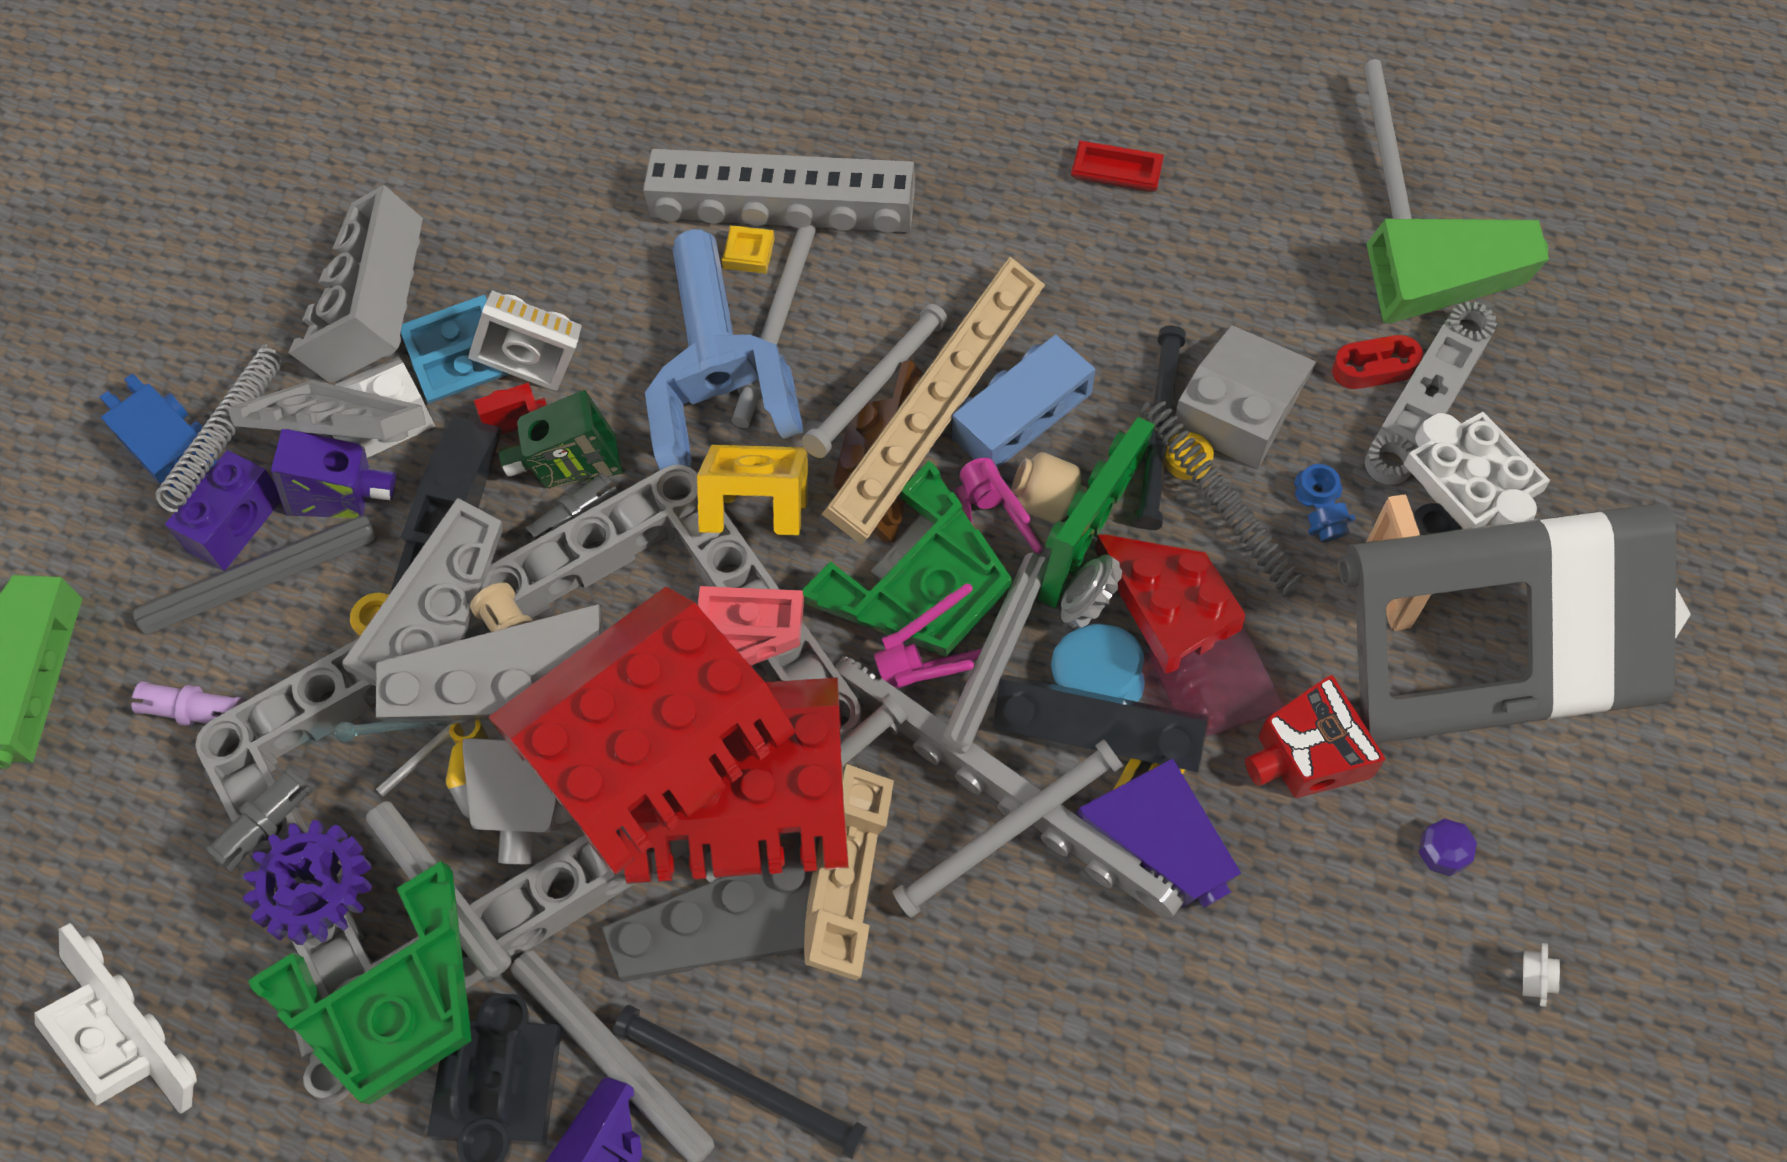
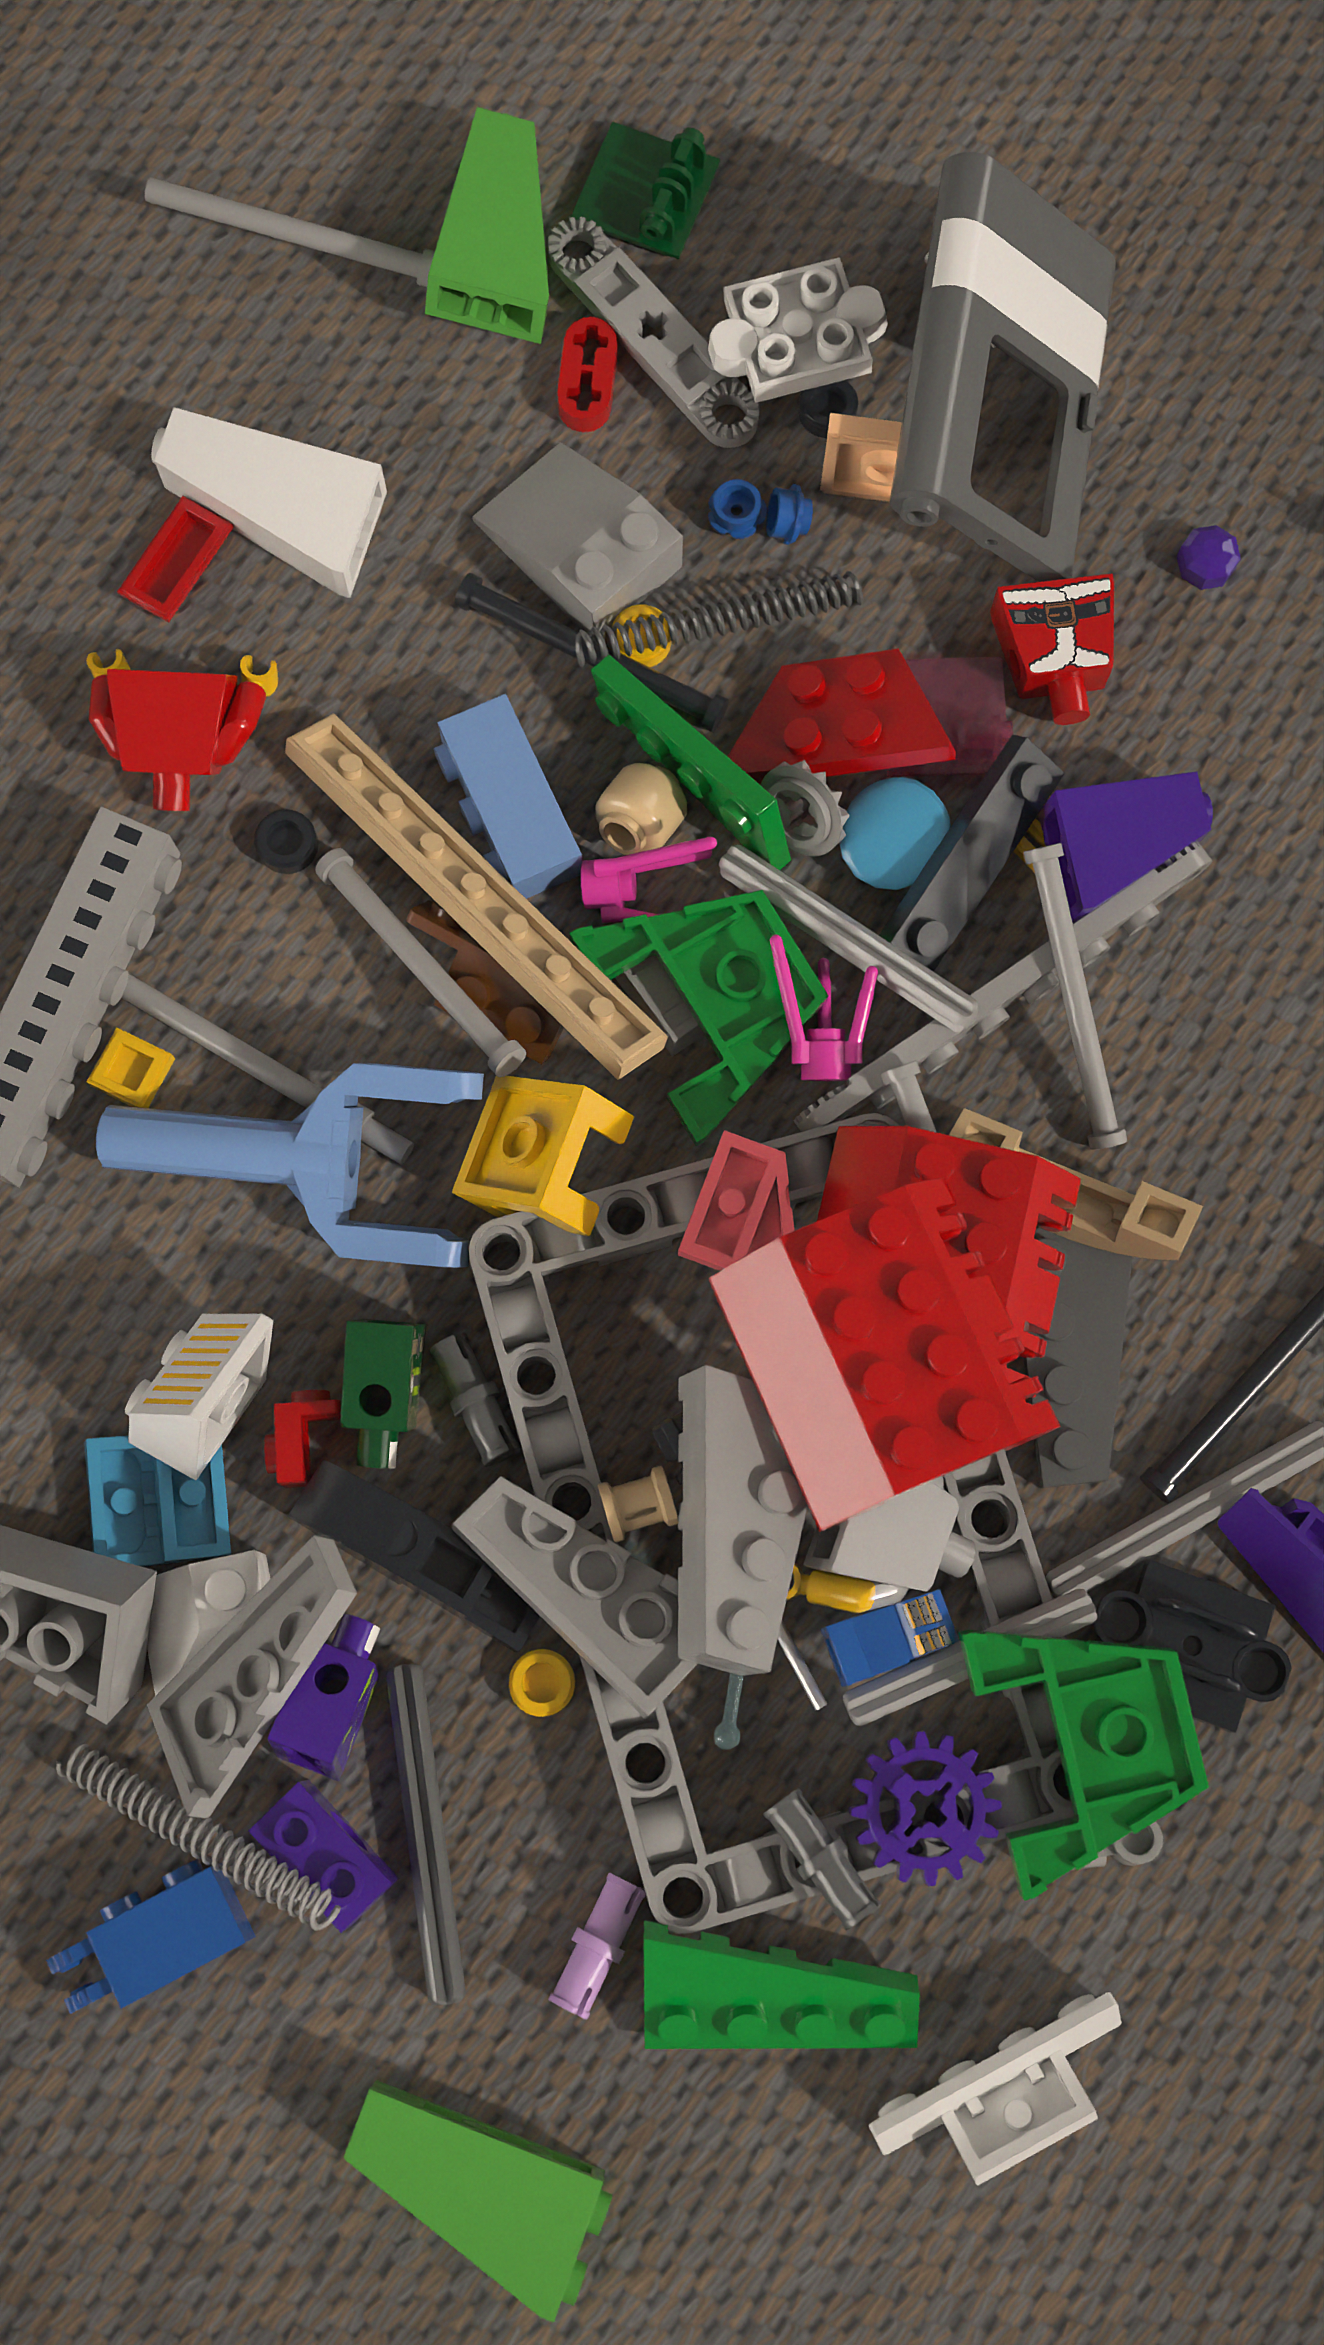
camera: 75 degrees left, 15 degrees up
(160, 831) = (747, 1999): none -> green wing
(435, 816) = (888, 1637): none -> blue leg
(942, 286) = (286, 841): none -> black tile
(998, 195) = (175, 721): none -> red torso
(1190, 207) = (277, 492): none -> white slope
(1546, 357) = (648, 187): none -> dark green hinge

